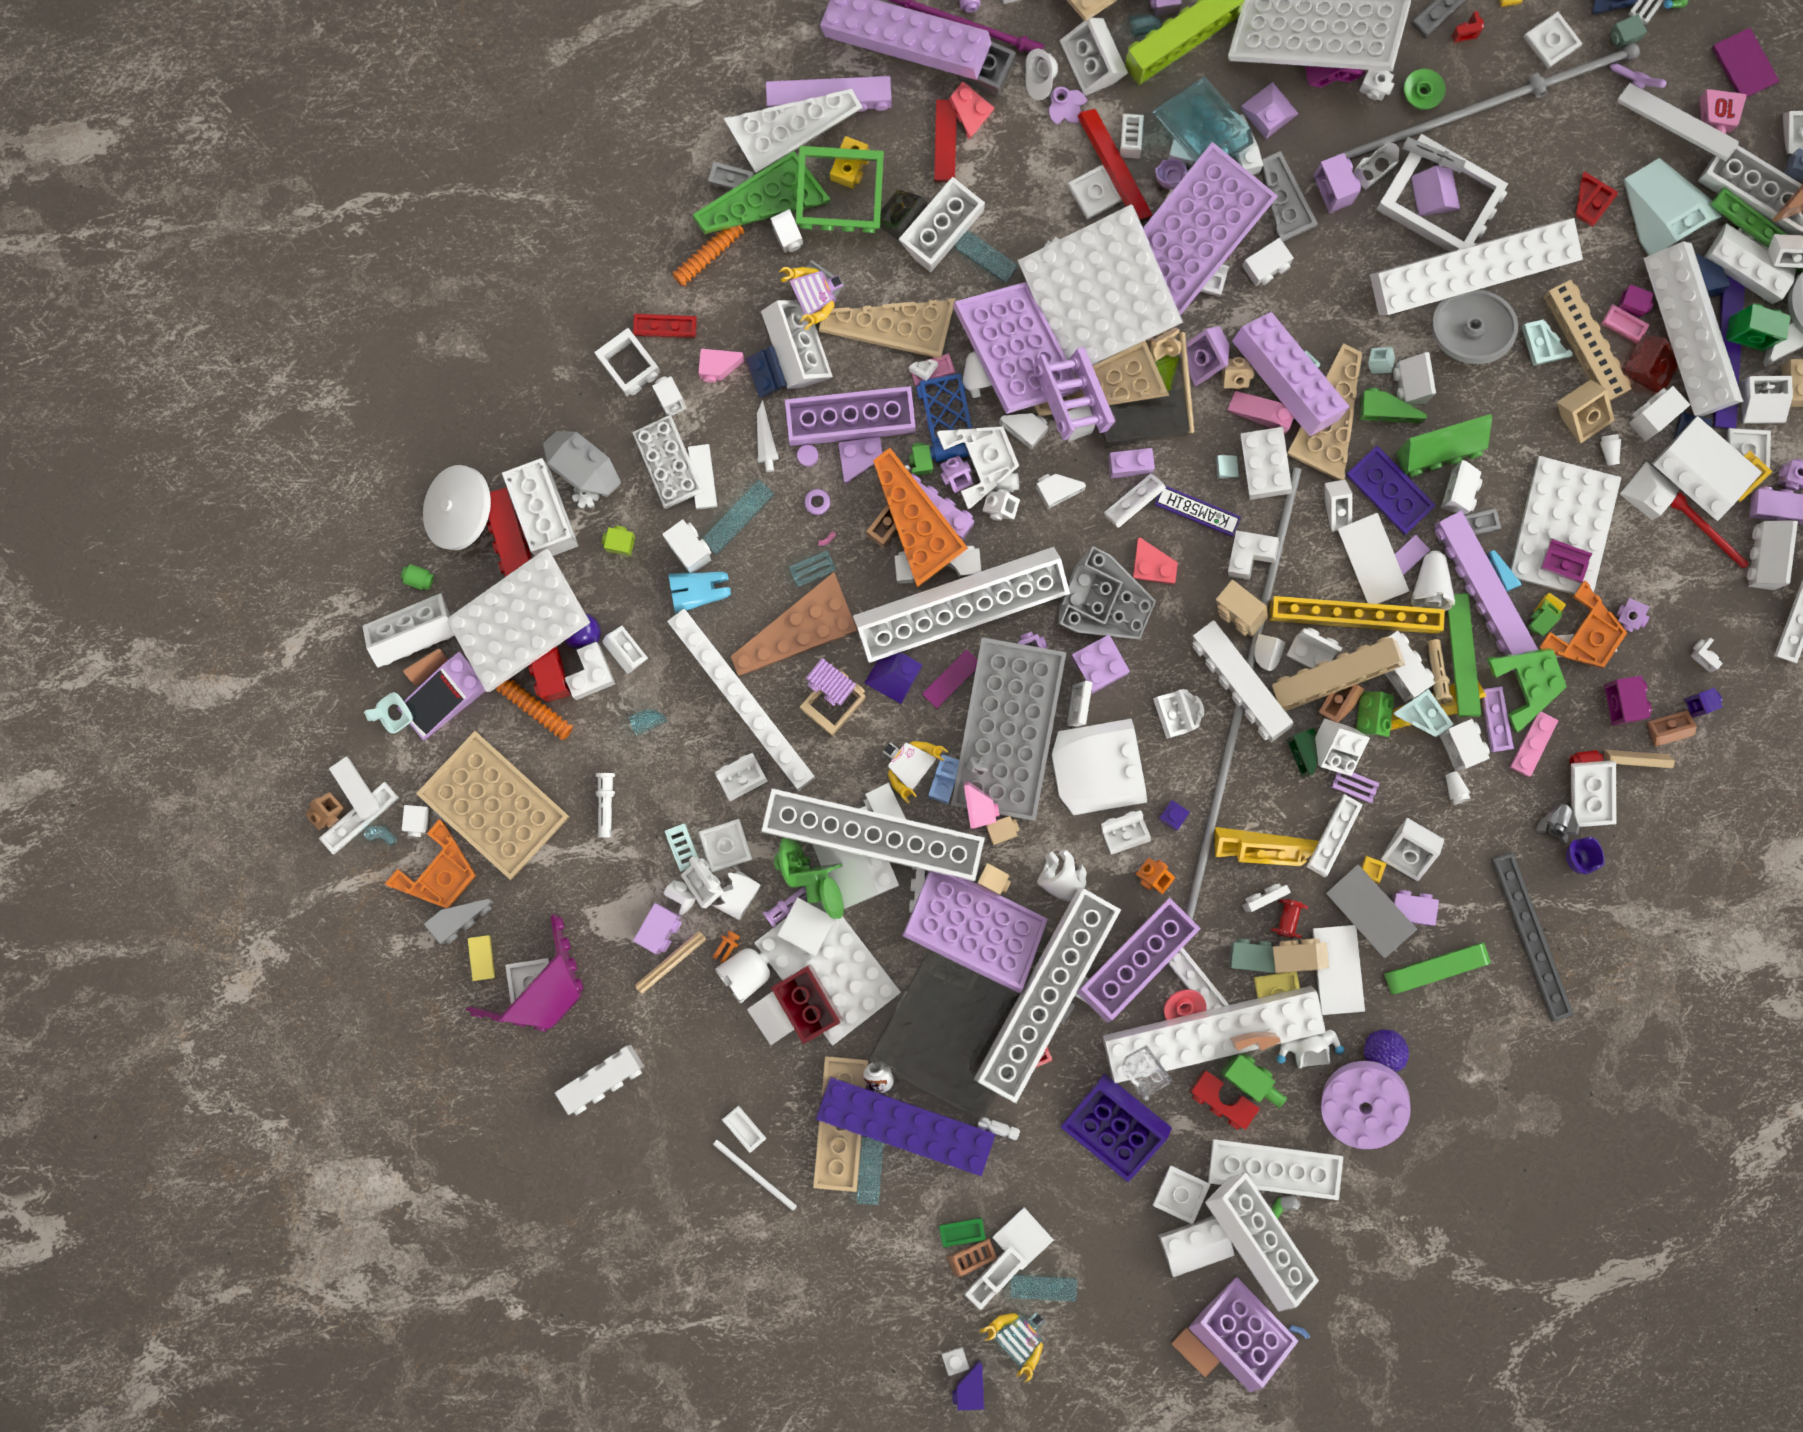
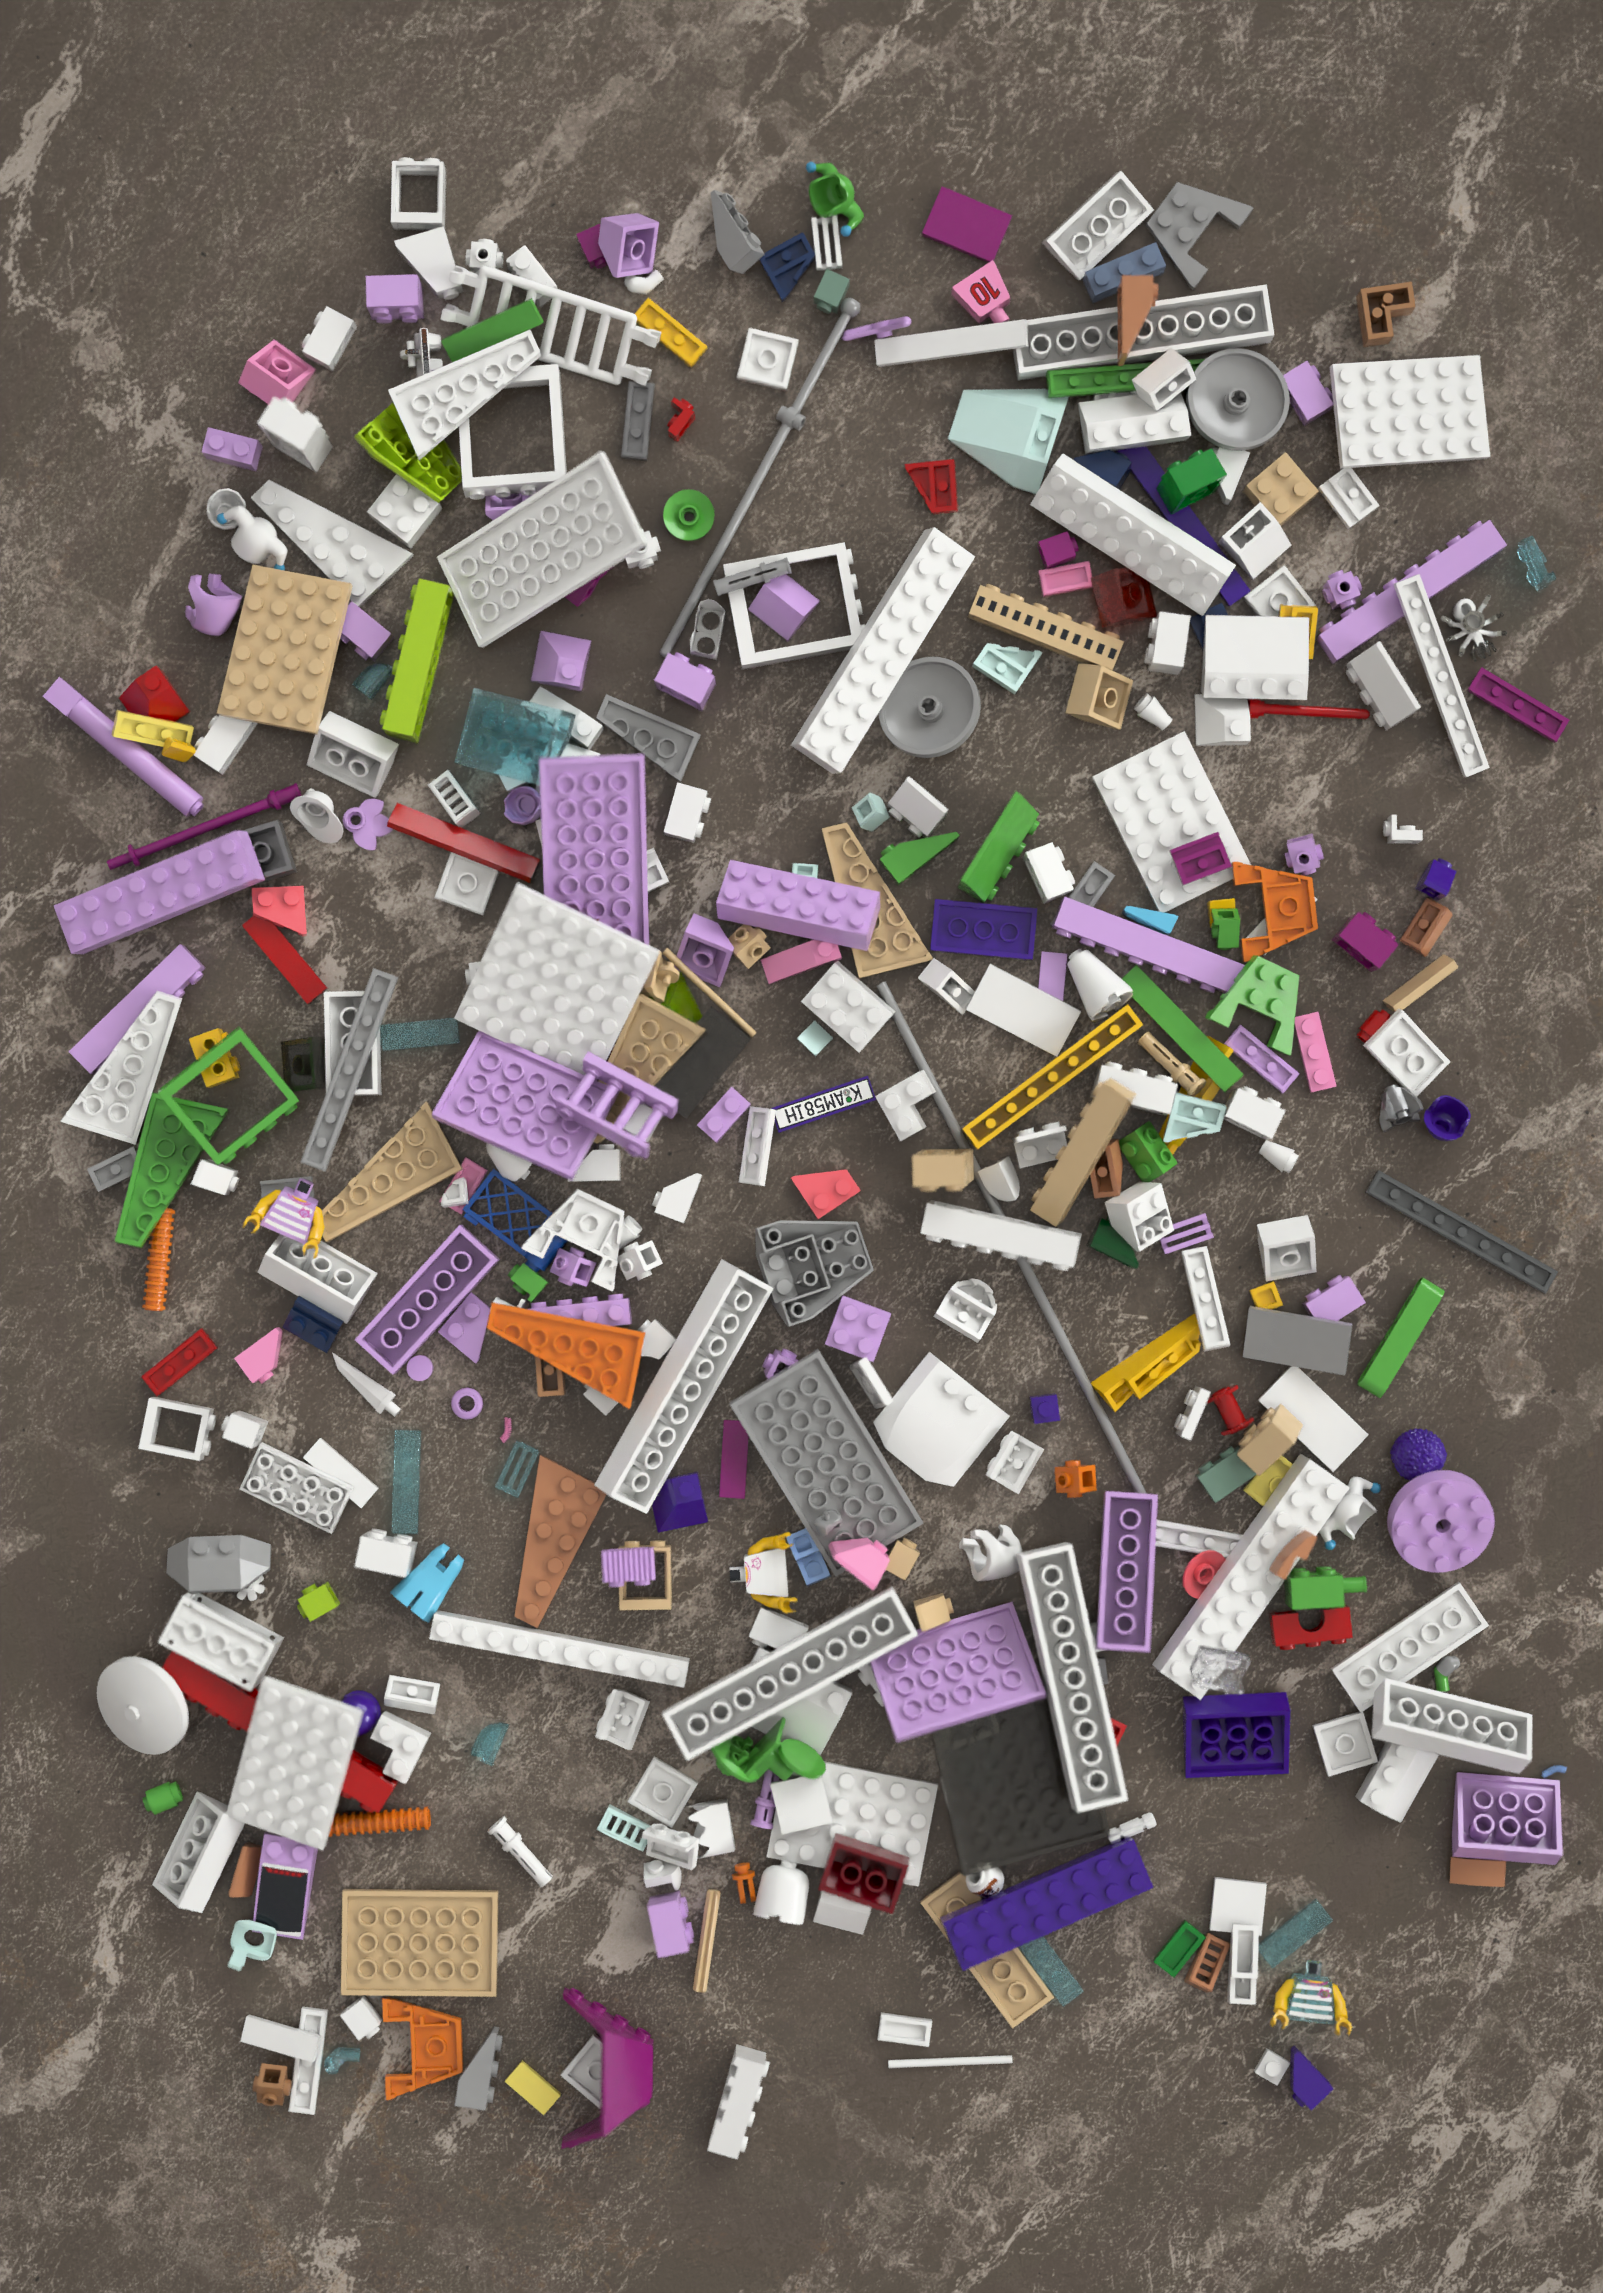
camera: 35 degrees left, 5 degrees up
(926, 235) = (349, 1069): none -> light grey tile

